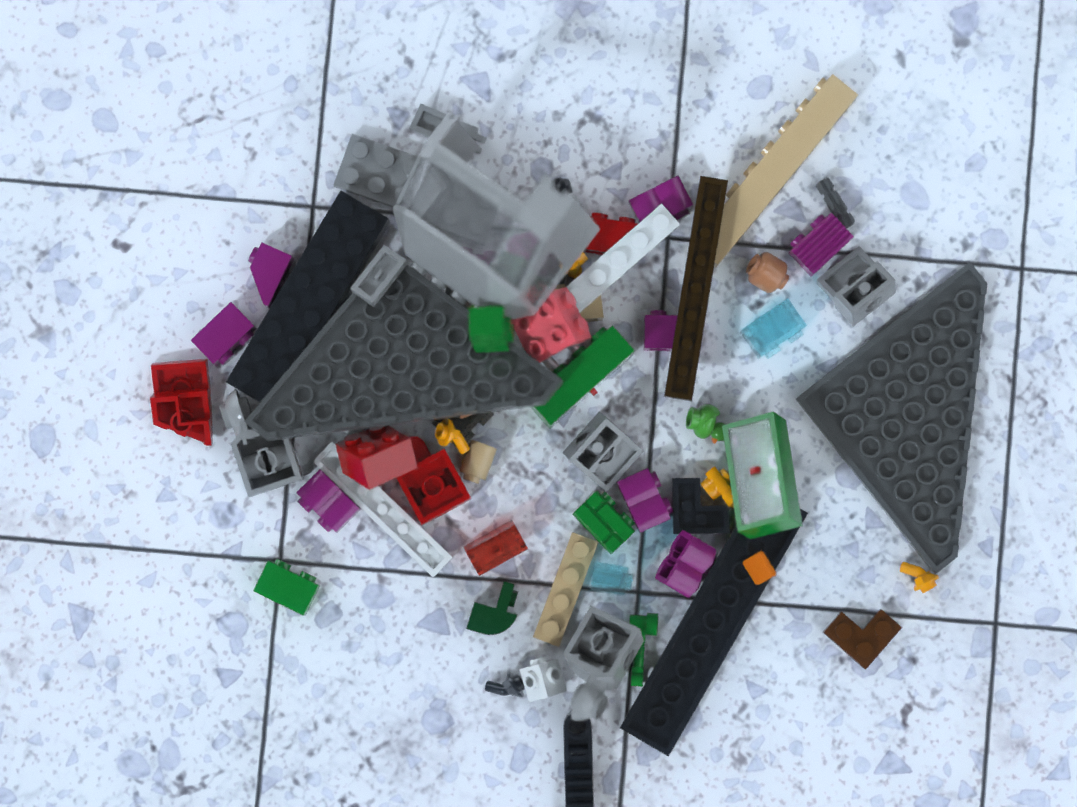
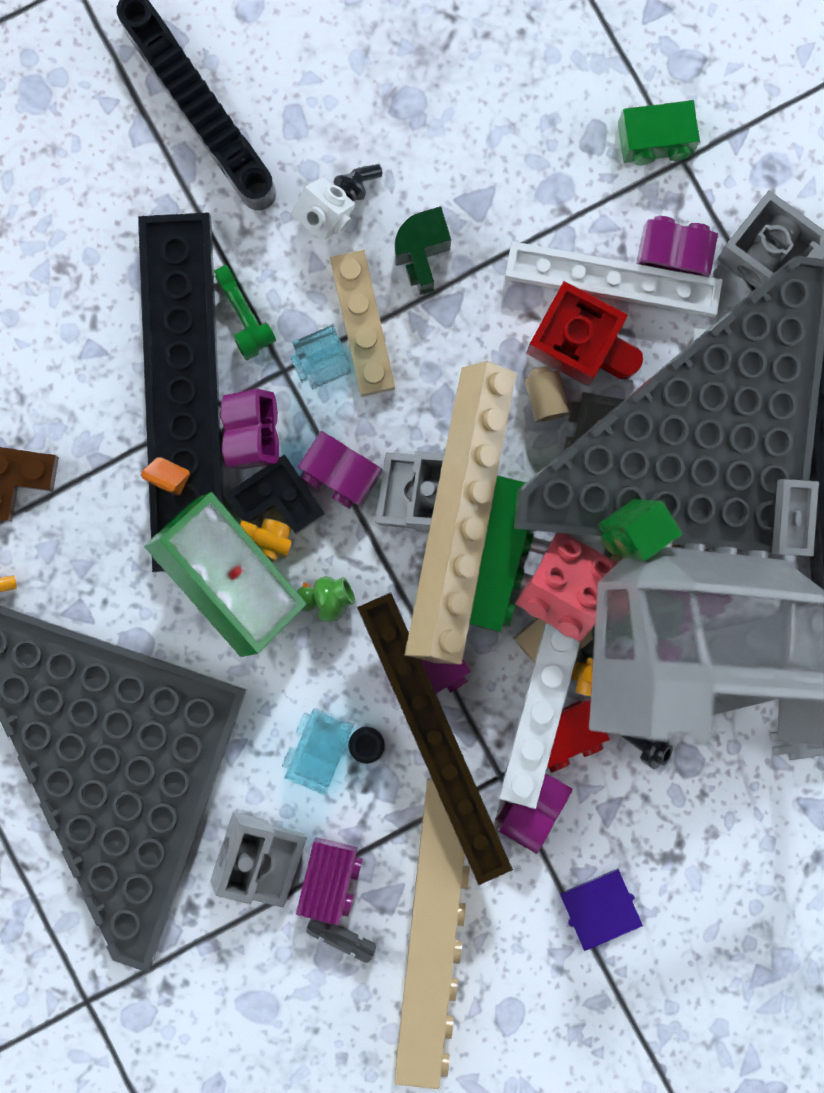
camera: 150 degrees right, 0 degrees up
(376, 455) = (662, 319): red brick -> none
(446, 432) = (602, 396): light orange plate -> none
(495, 547) = (466, 314): clear red hinge -> none
(587, 416) = (461, 514): none -> tan brick
(600, 656) = (275, 269): light grey brick -> none
(604, 521) = (367, 419): green brick -> none
(659, 114) = (601, 909): none -> dark purple piece
(741, 313) = (366, 745): none -> black plate
(767, 272) = (366, 809): nougat head -> none

